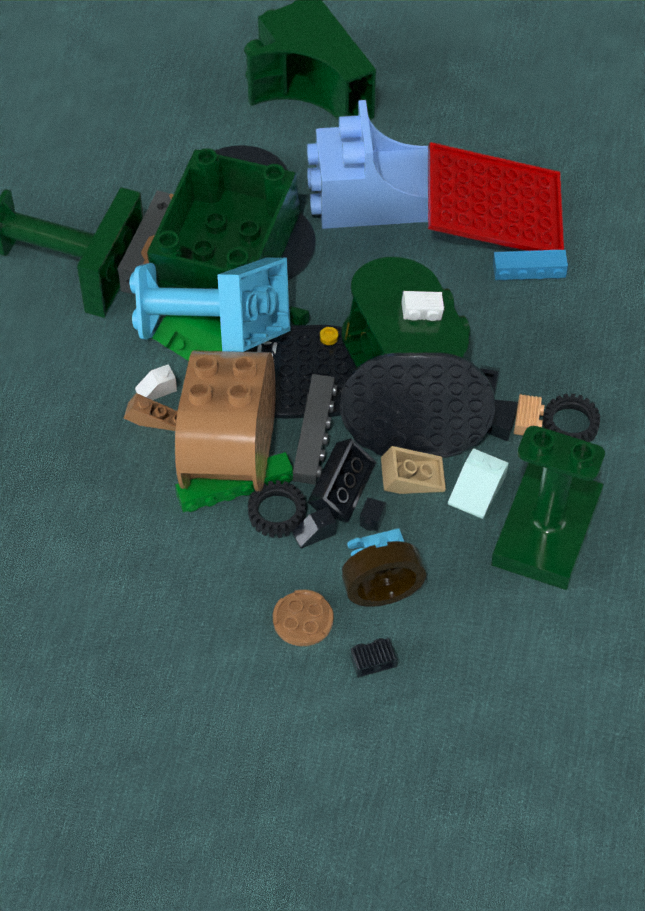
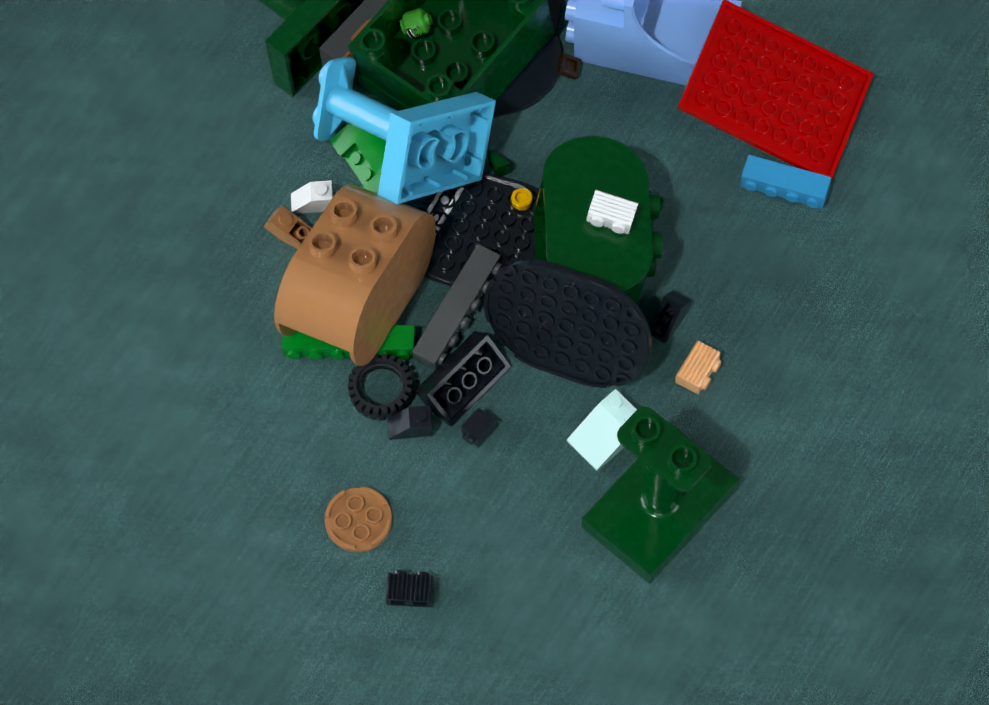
camera: 25 degrees right, 10 degrees up
(189, 228) = (416, 23): none -> bright green head
(321, 232) = (569, 66): none -> dark brown tile
(377, 539) = (470, 462): medium azure hinge -> none
(383, 574) = (450, 505): dark brown brick -> none
(412, 471) = (542, 392): tan slope -> none
(503, 419) = (666, 360): black torso -> none
(576, 404) = (748, 365): black tyre -> none

